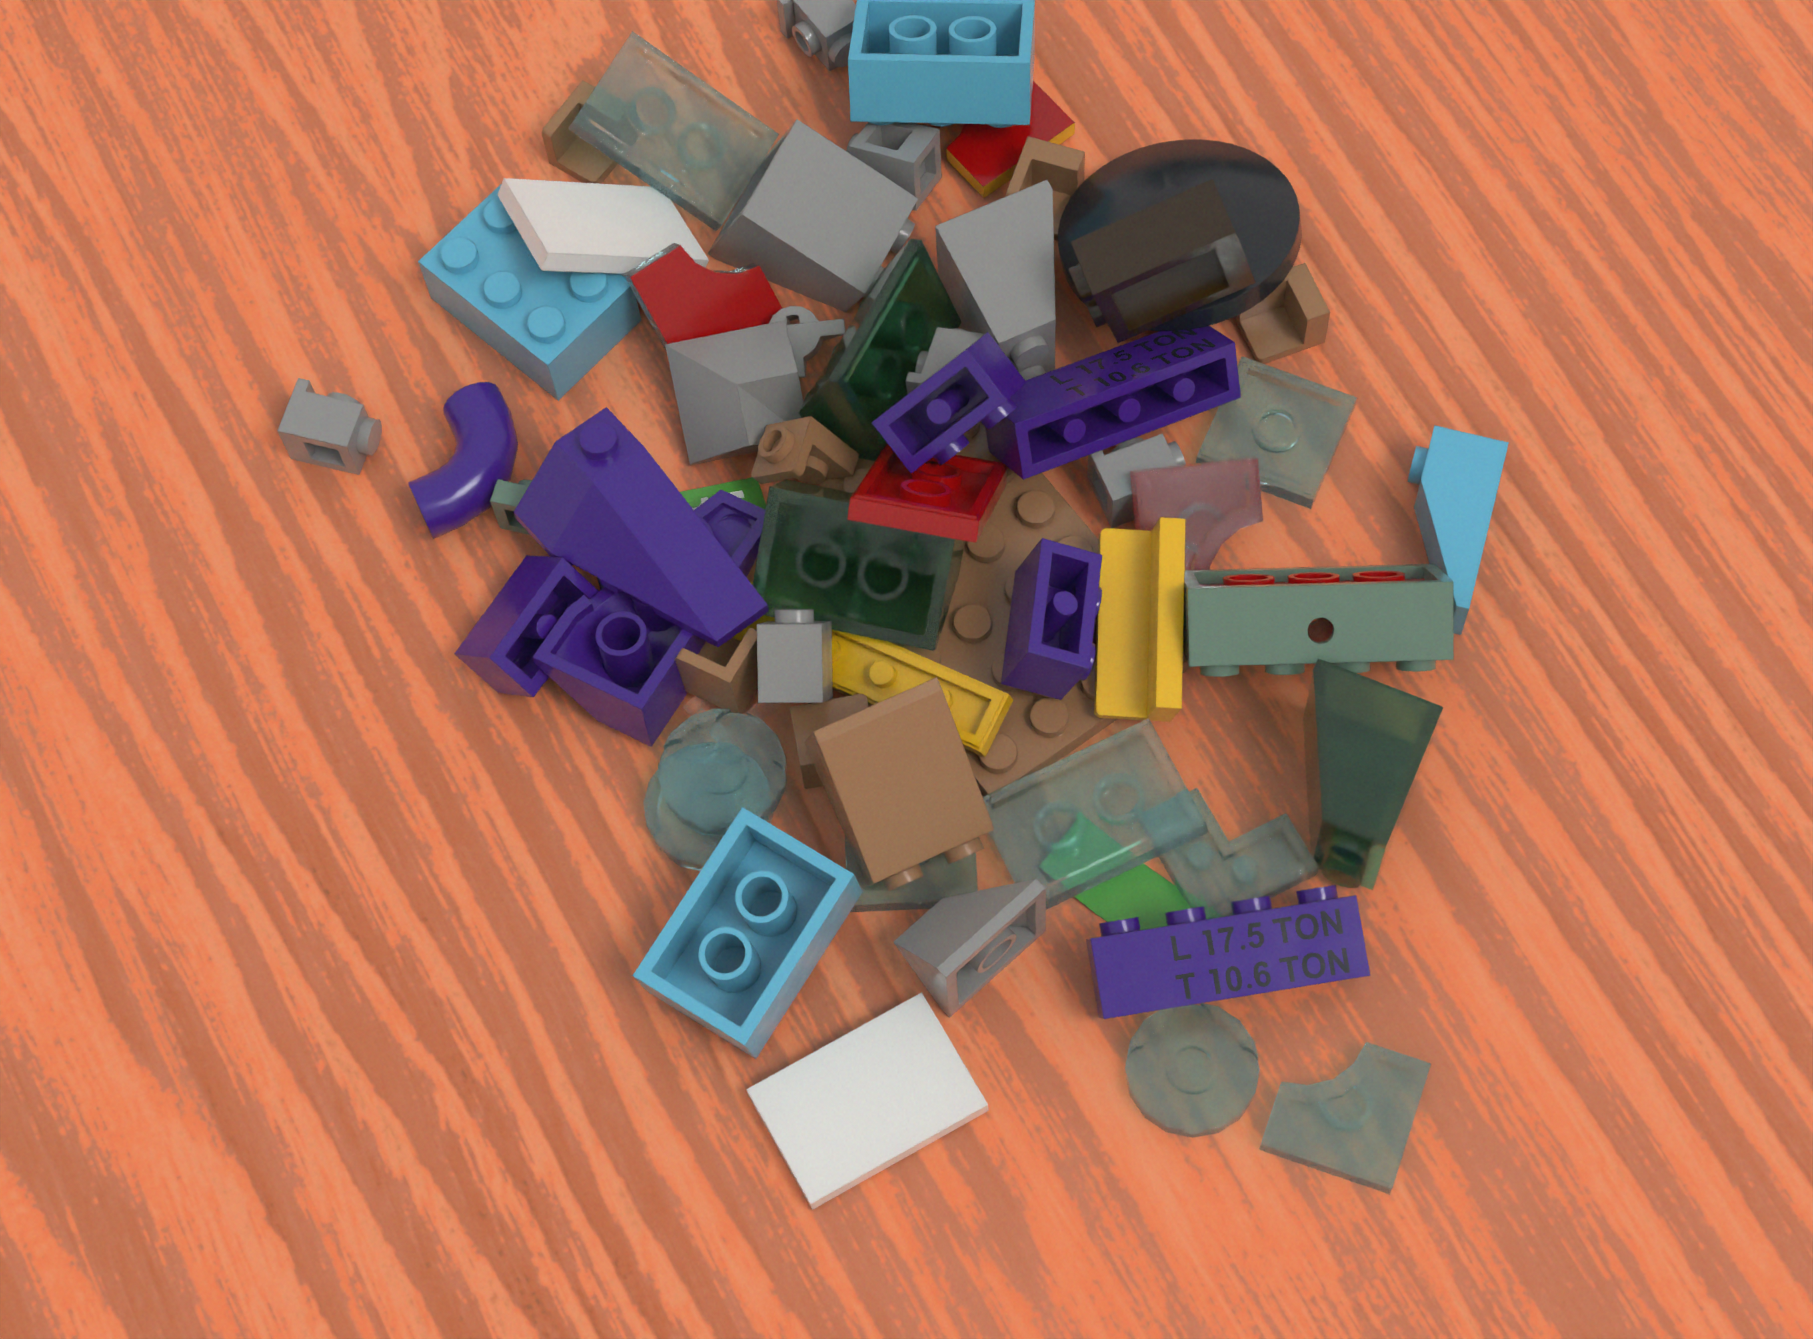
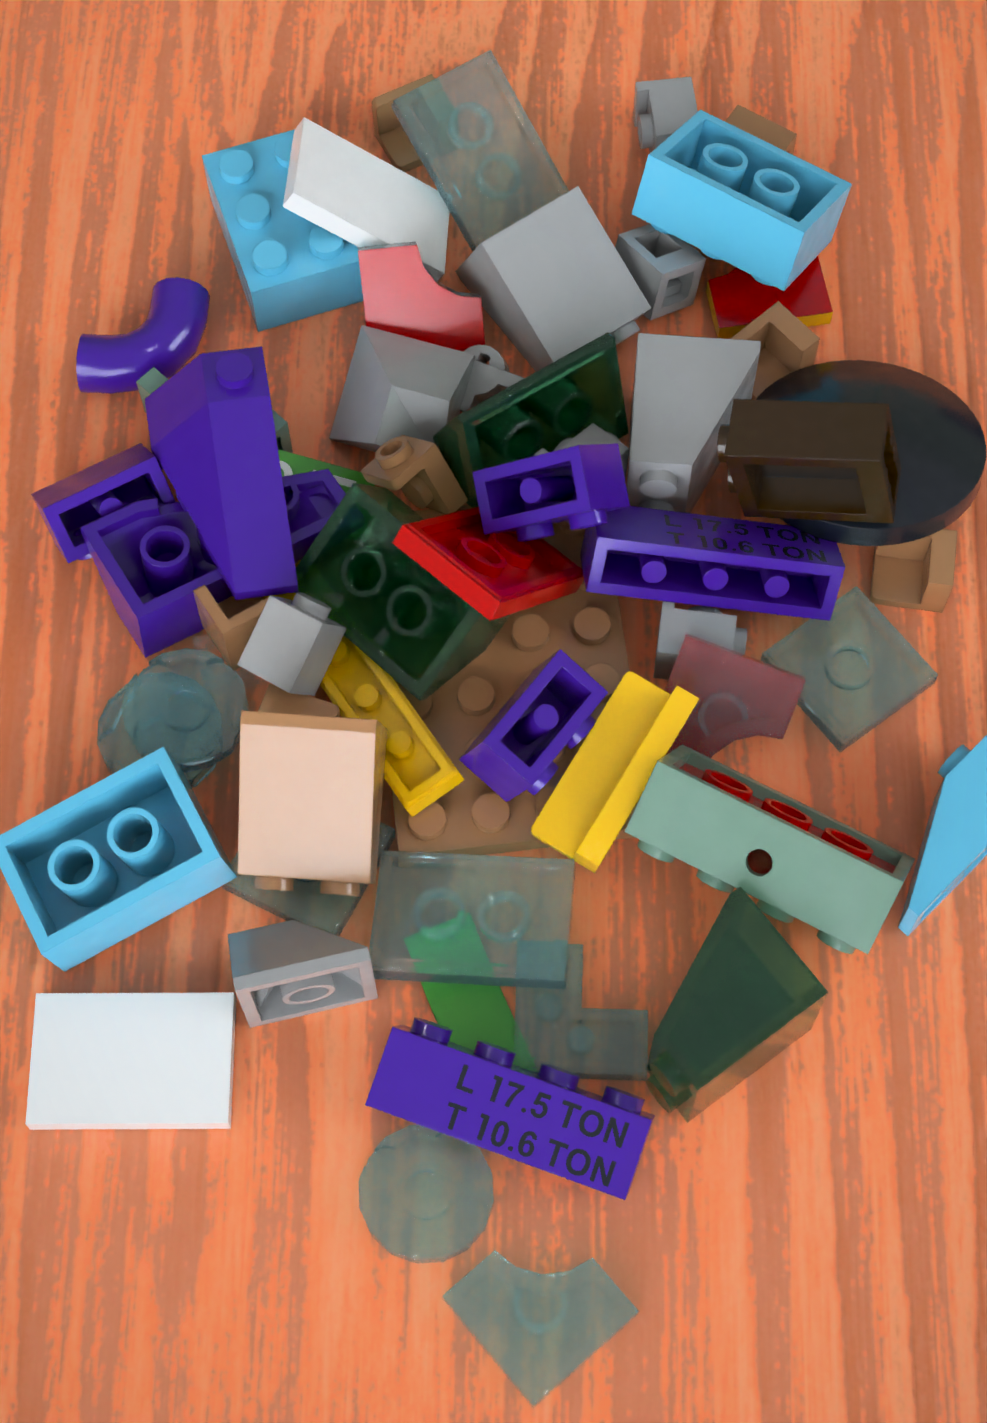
camera: 25 degrees right, 0 degrees up
(328, 429) = (53, 259): light grey brick -> none

